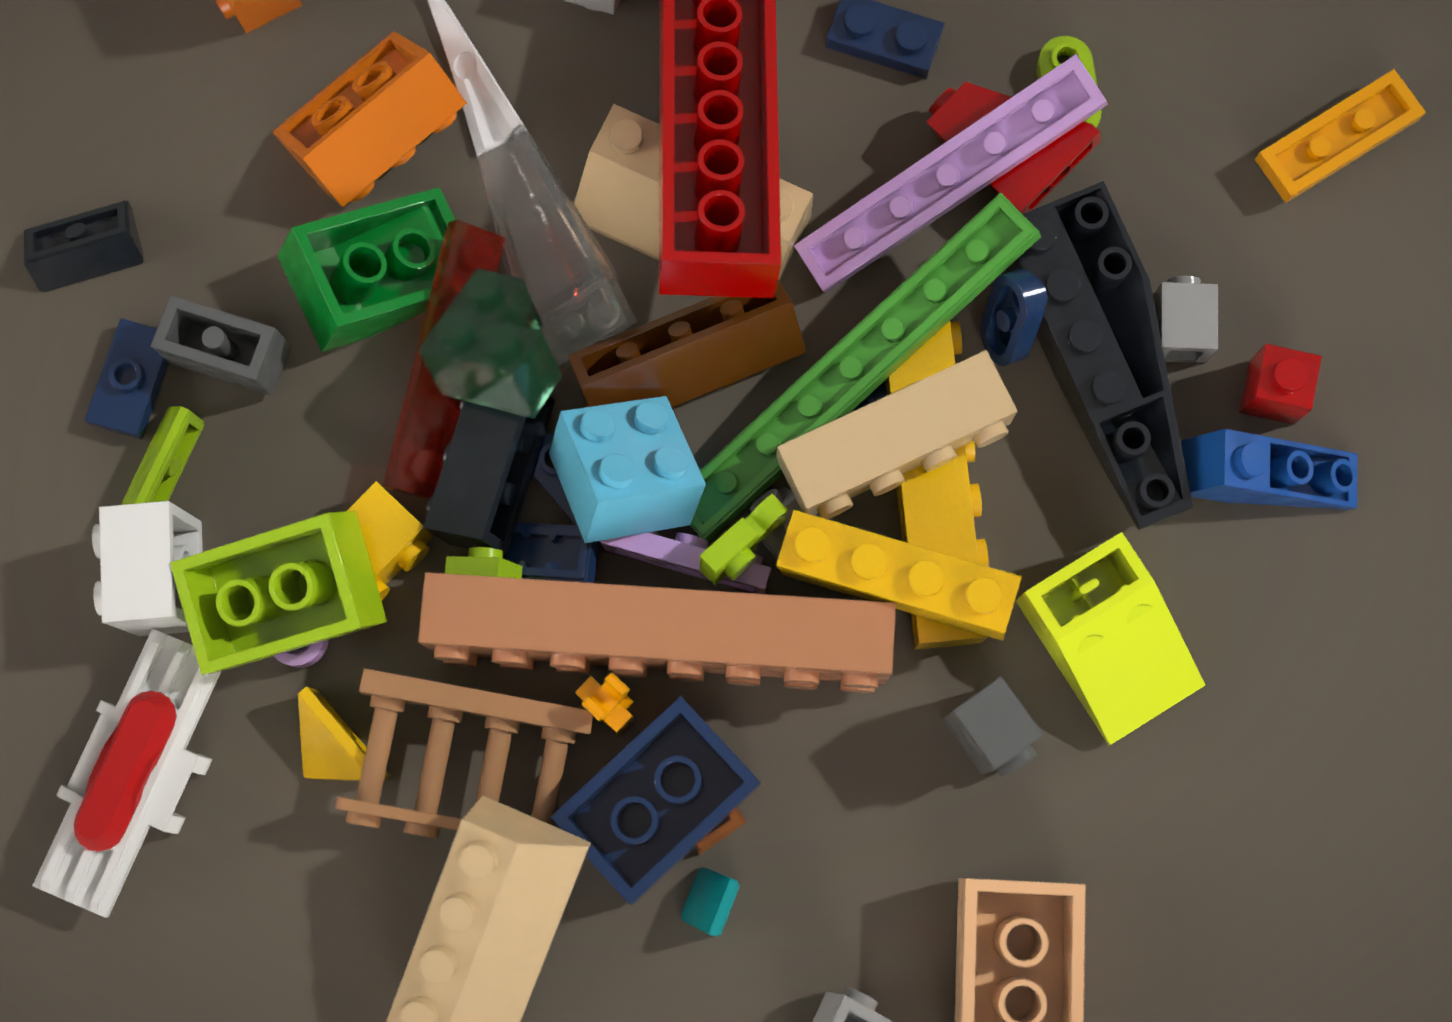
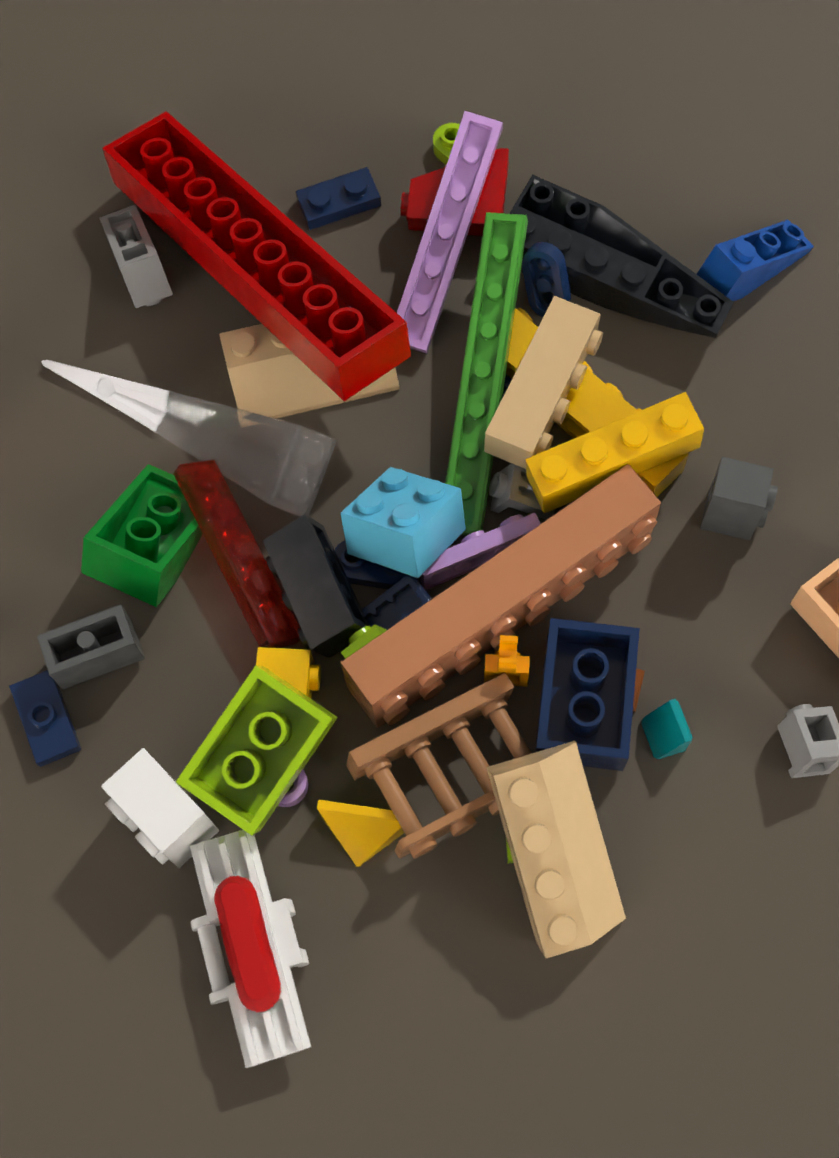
camera: 40 degrees left, 10 degrees down
(165, 457) = (104, 742): lime slope -> none
(371, 118) = (72, 455): orange slope -> none
(492, 347) = (267, 513): clear green brick -> none
(691, 350) = (381, 432): reddish brown brick -> none
(734, 550) = (508, 514): lime plate -> none
(1112, 638) = (755, 404): neon yellow slope -> none
(1187, 319) = (642, 212): light grey brick -> none
(1280, 384) = (718, 211): red brick -> none
(1339, 135) = (630, 72): light orange plate -> none

